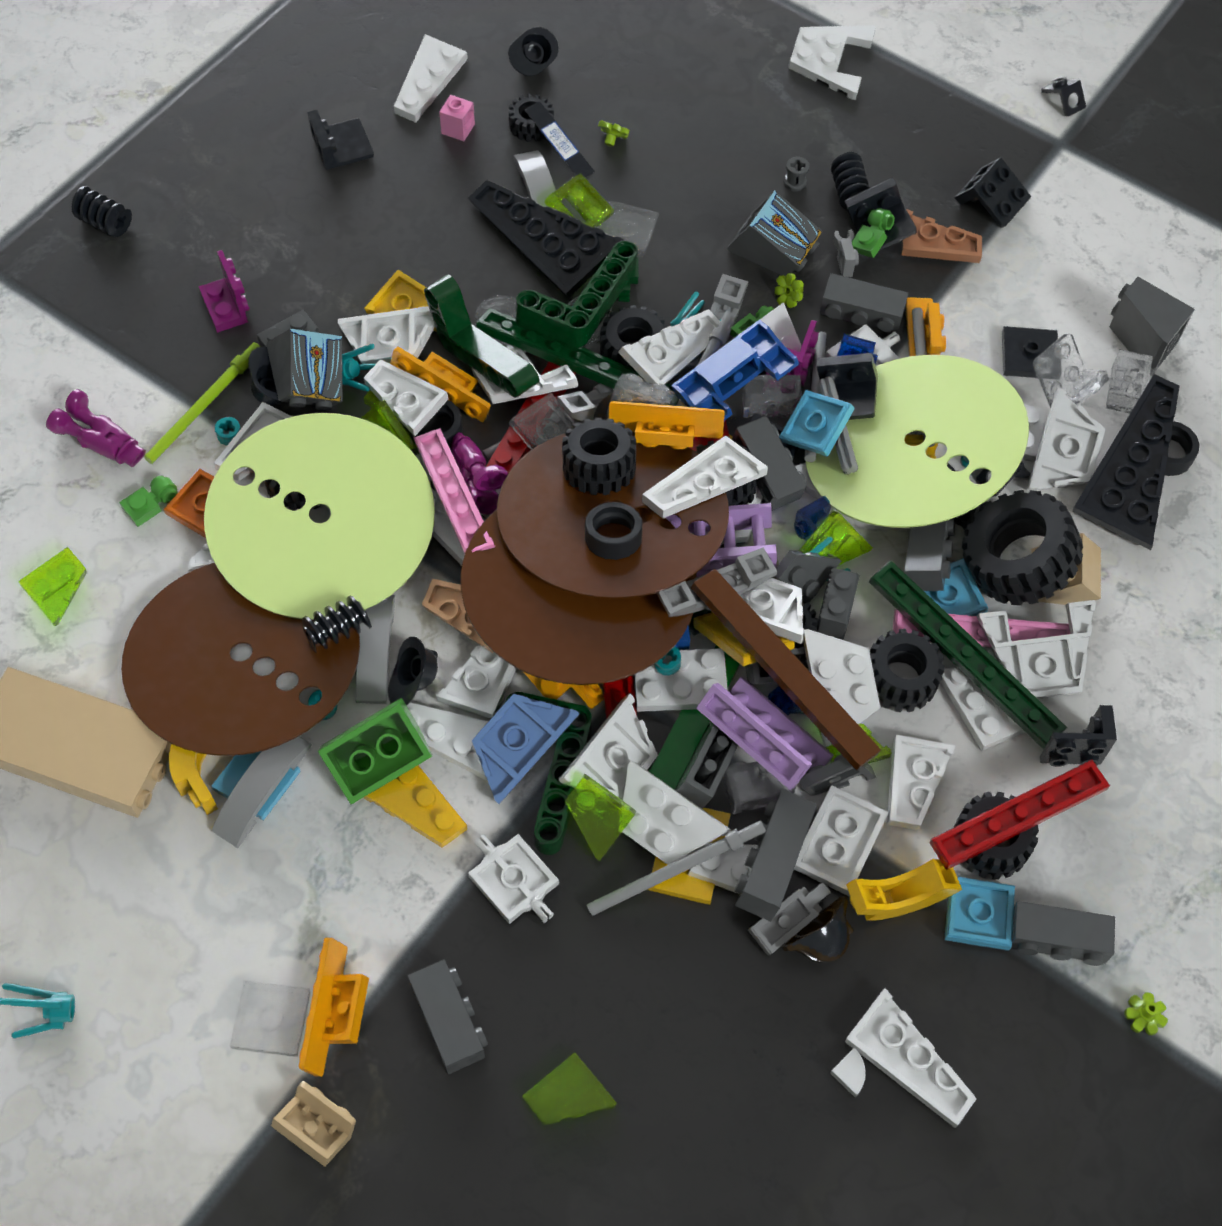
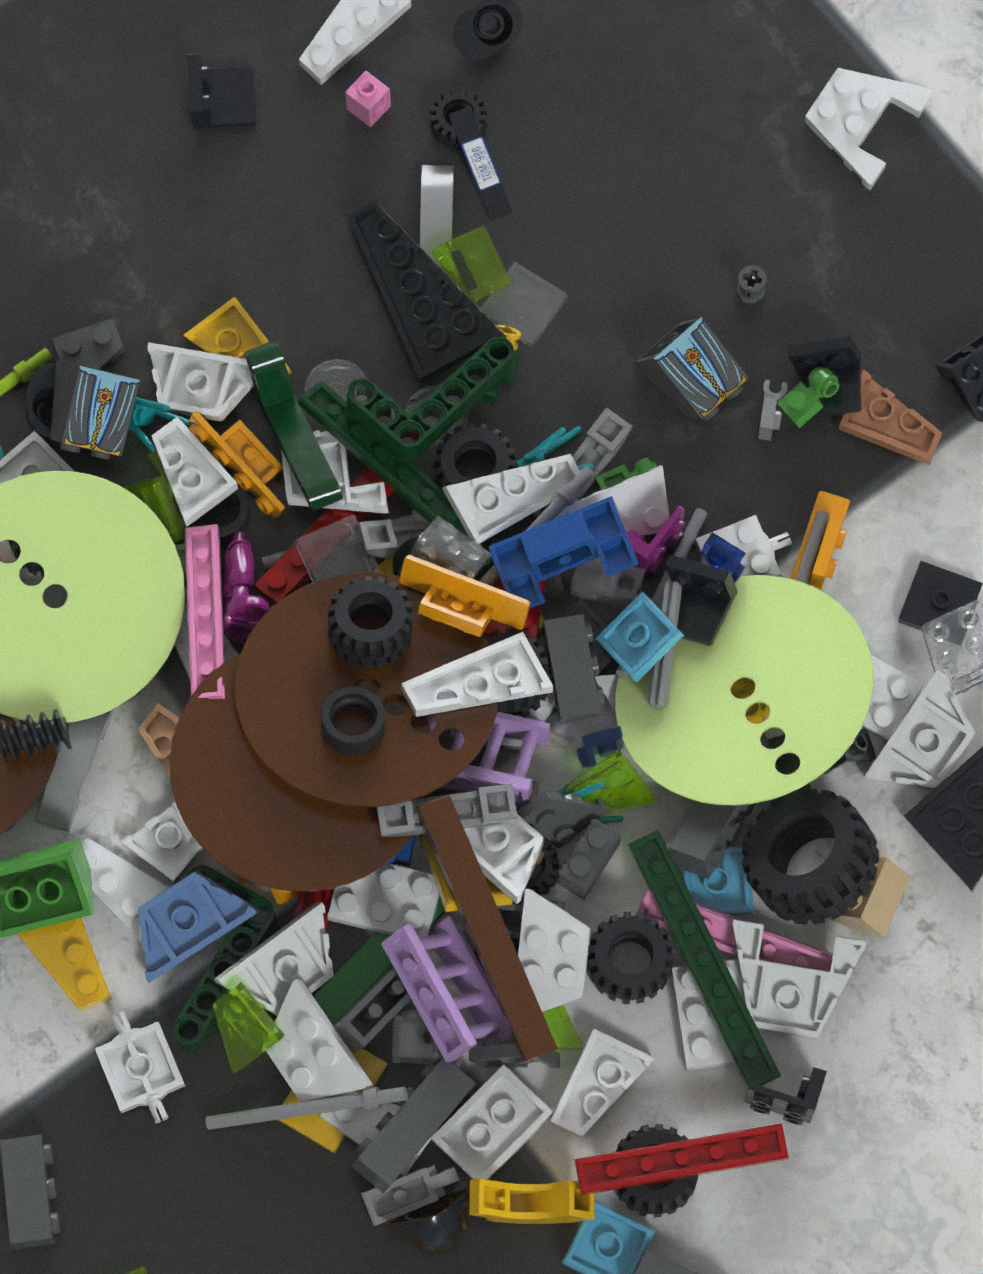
camera: 20 degrees right, 10 degrees up
(224, 297) = (28, 281): magenta bracket -> none
(413, 671) = (104, 807): black piece -> none
(613, 132) = (549, 165): lime plant -> none
(673, 666) = (377, 886): teal bush -> none
(789, 289) = (683, 444): lime plant -> none
(849, 176) = (811, 311): black piece -> none
(863, 303) = (764, 486): dark grey brick -> none

